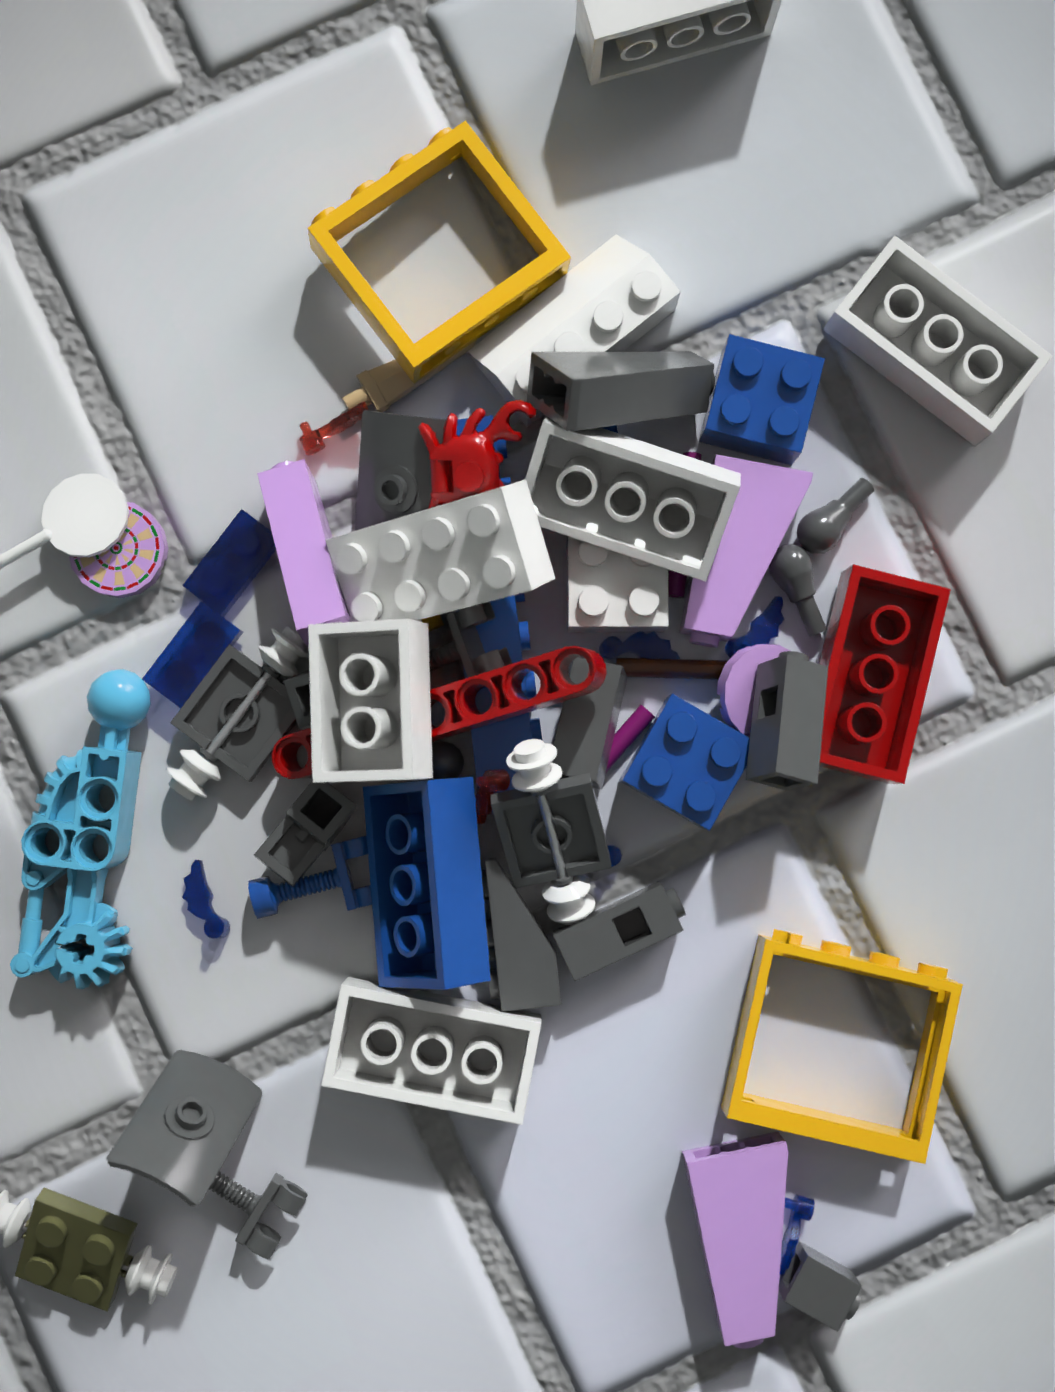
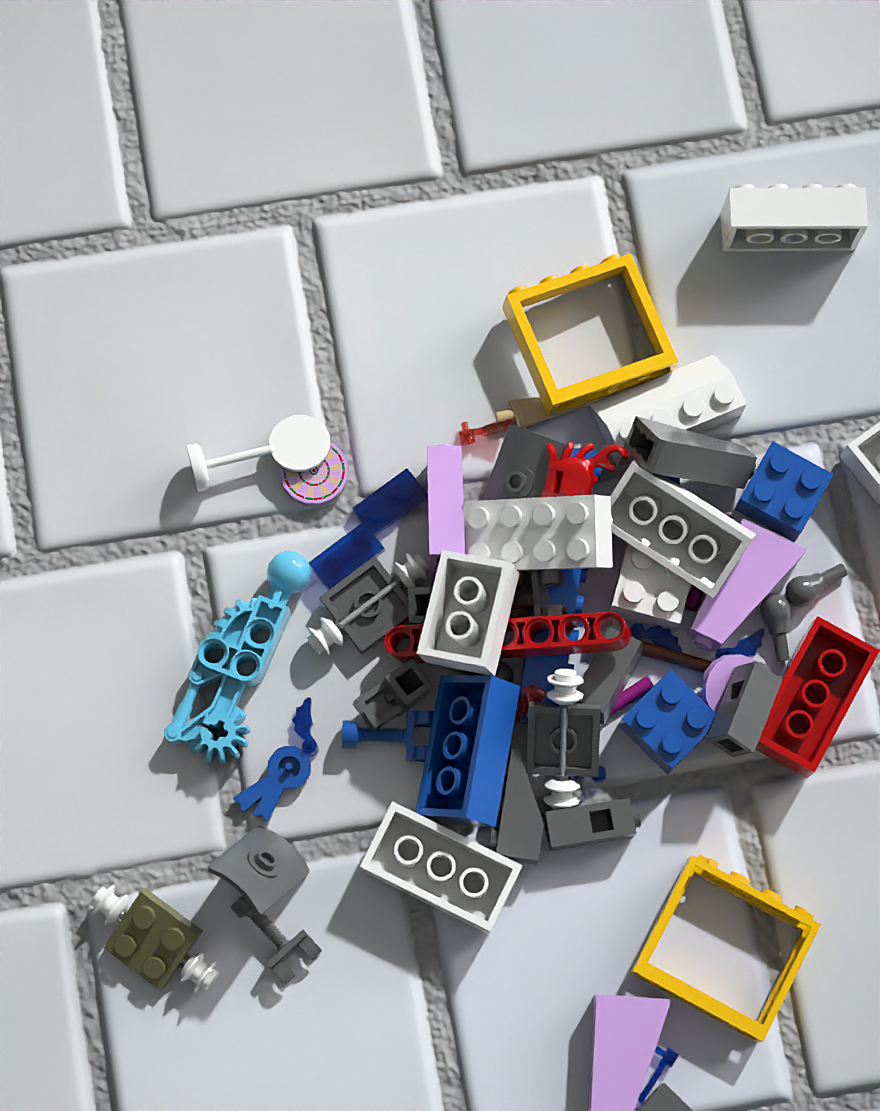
camera: 10 degrees right, 10 degrees down
(193, 967) = (287, 769): none -> blue piece

